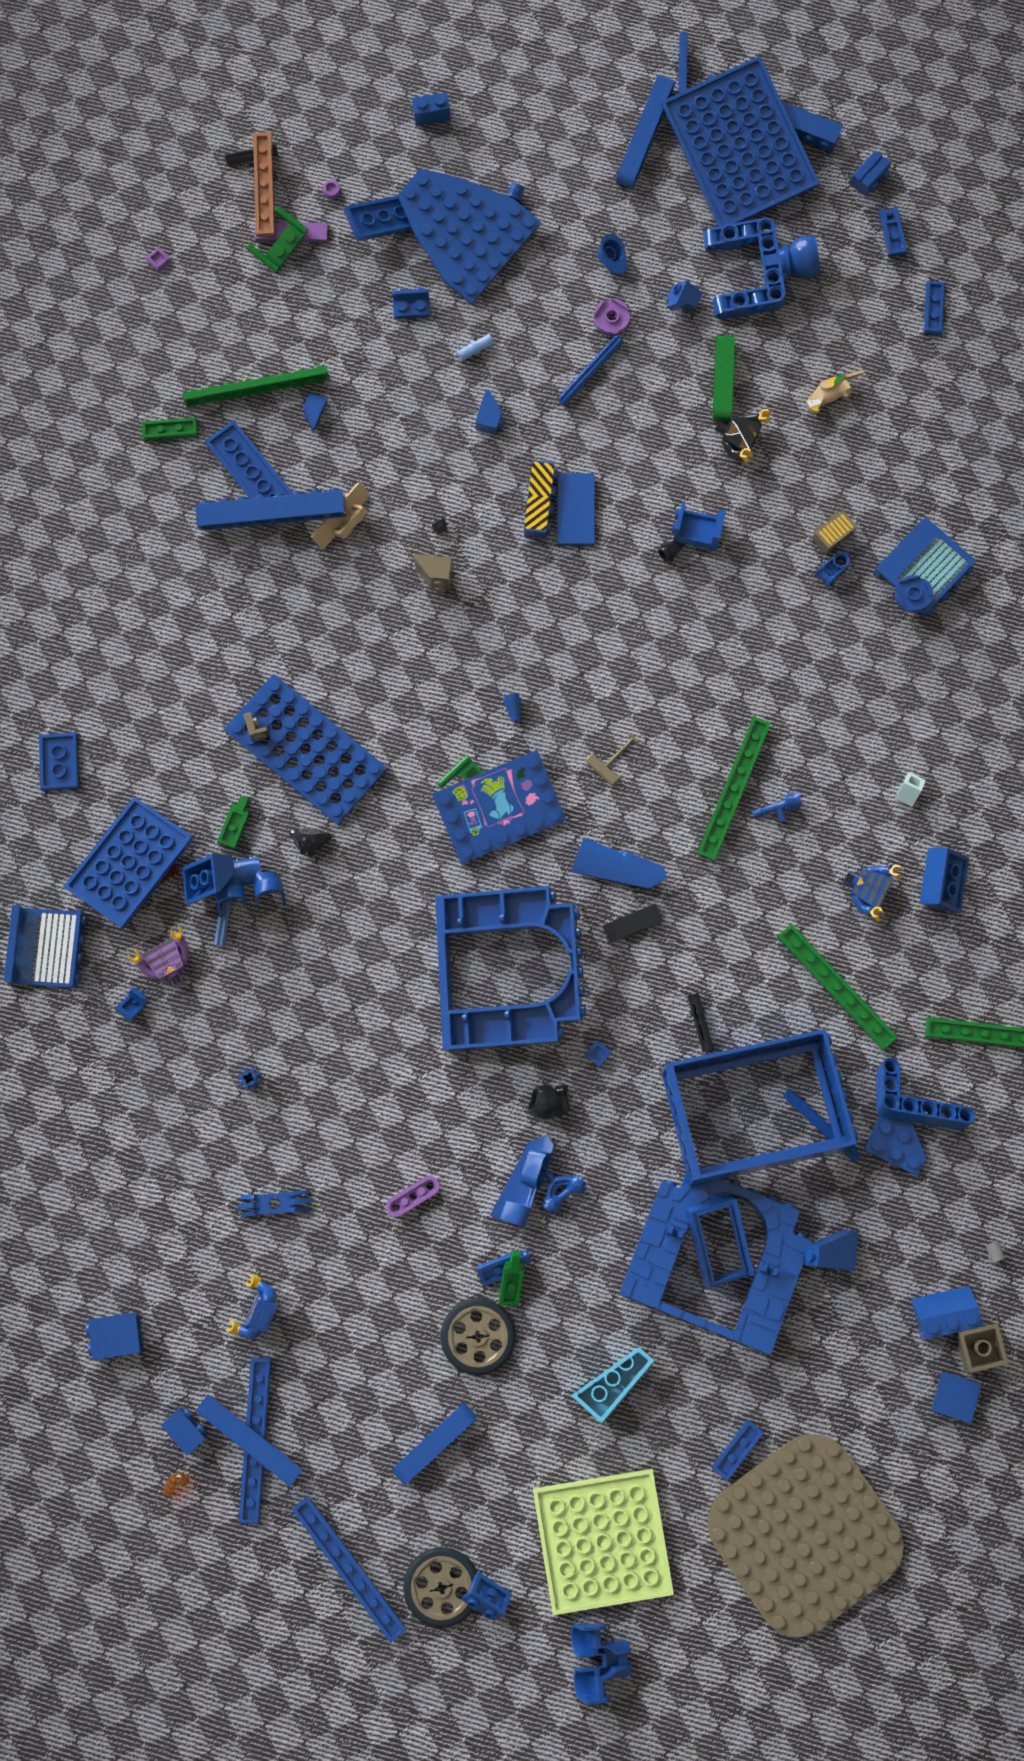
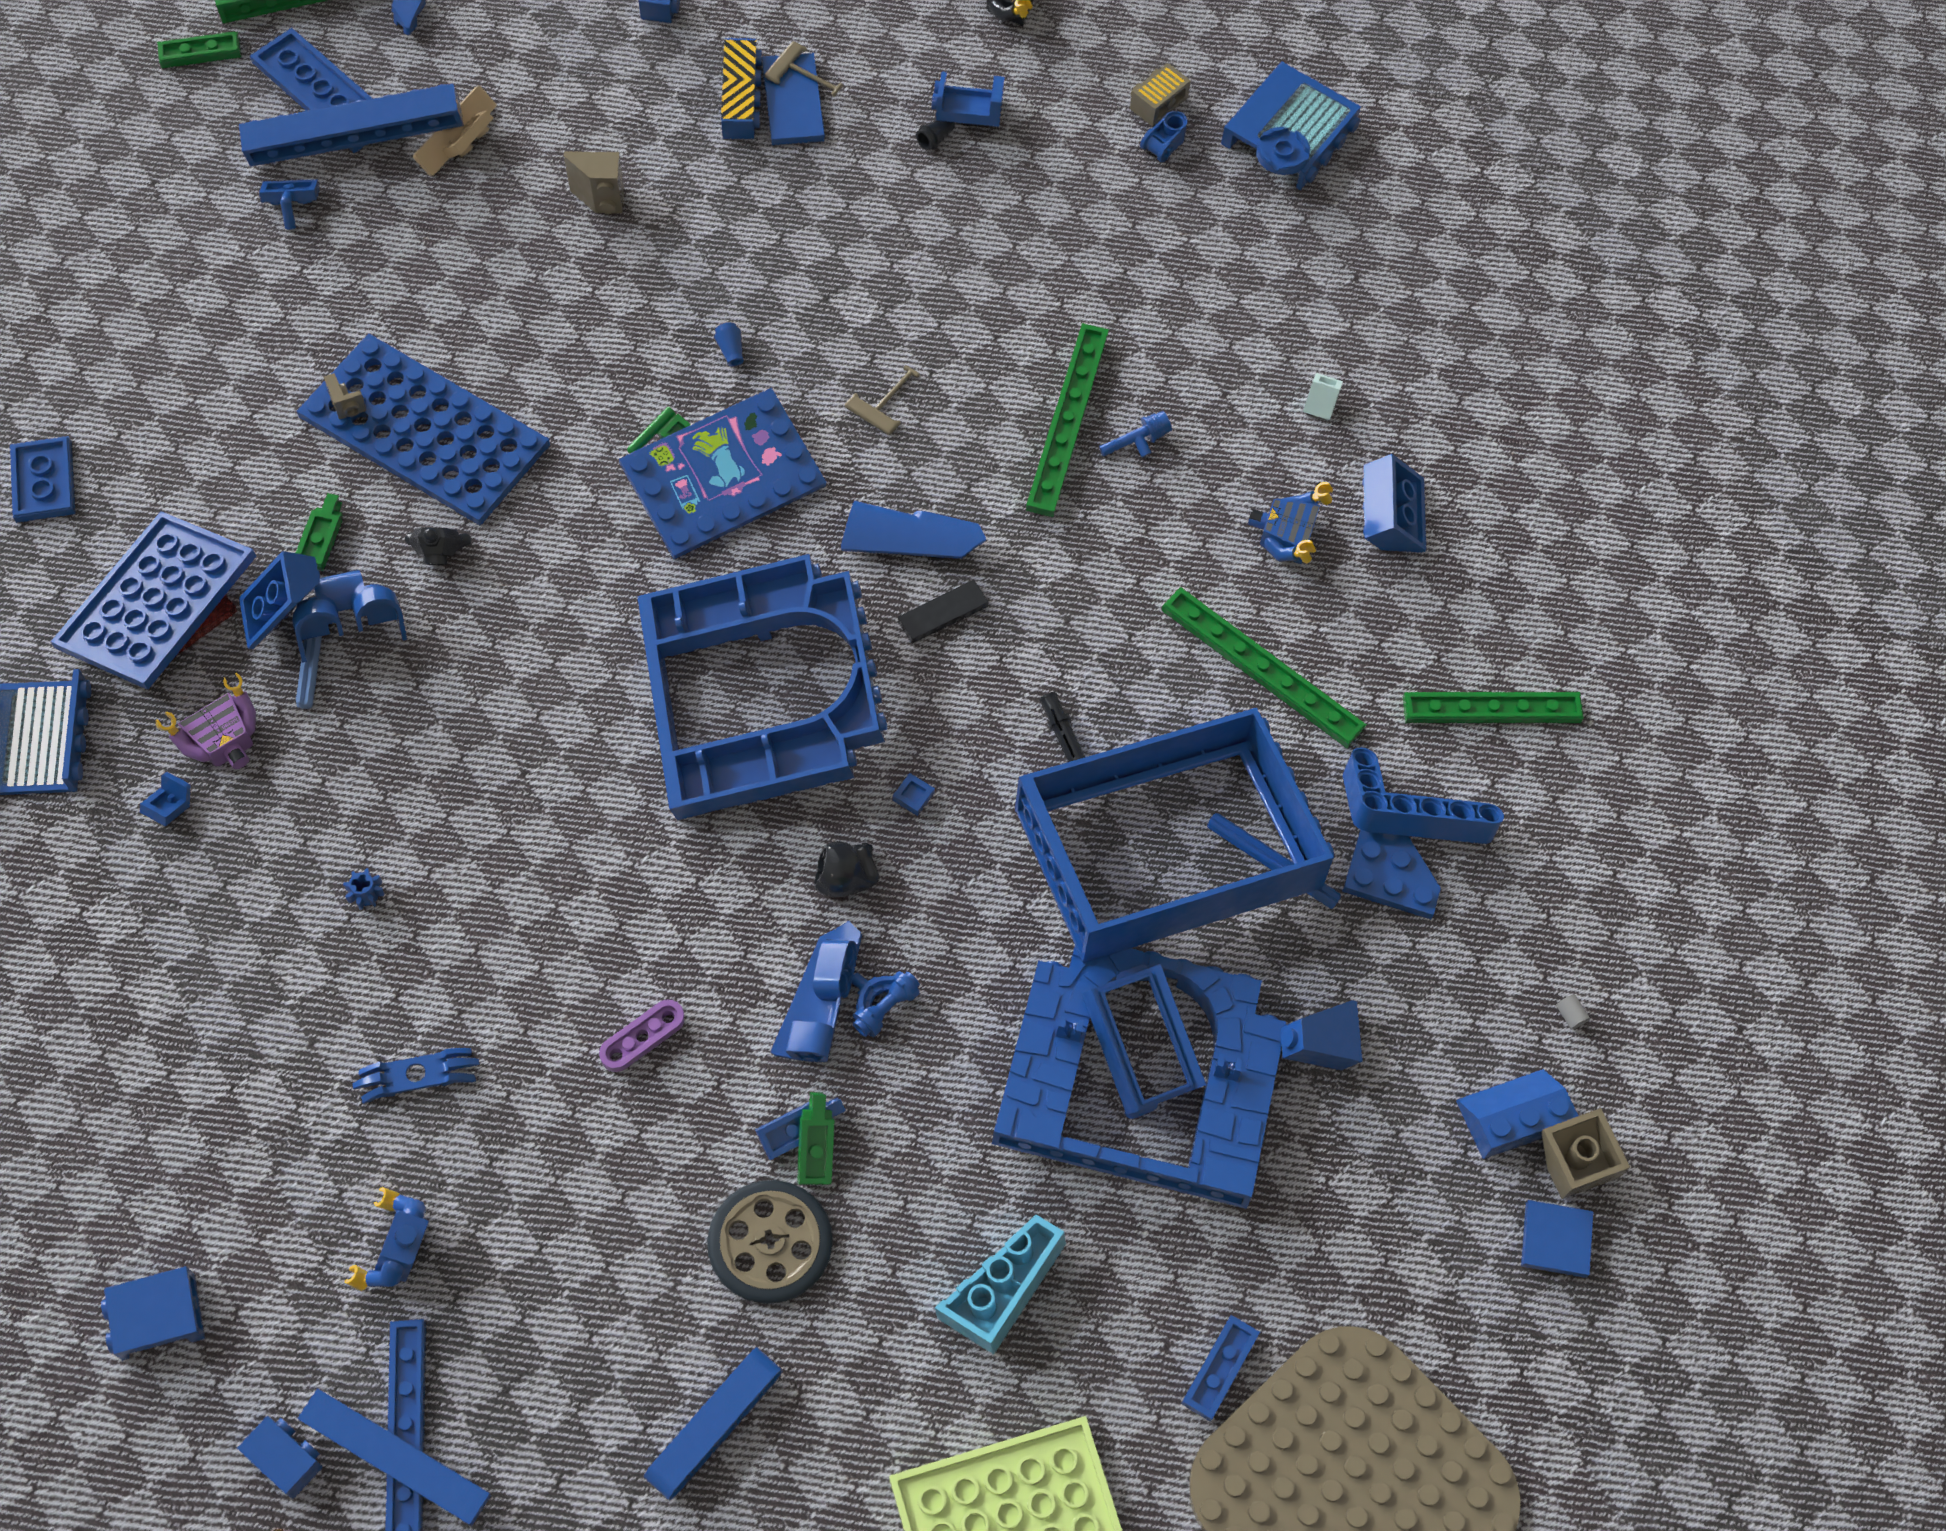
camera: 15 degrees left, 15 degrees down
(226, 555) = (287, 191): none -> blue plate
(440, 526) = (600, 132): black plate -> none
(574, 479) = (786, 61): none -> dark tan piece

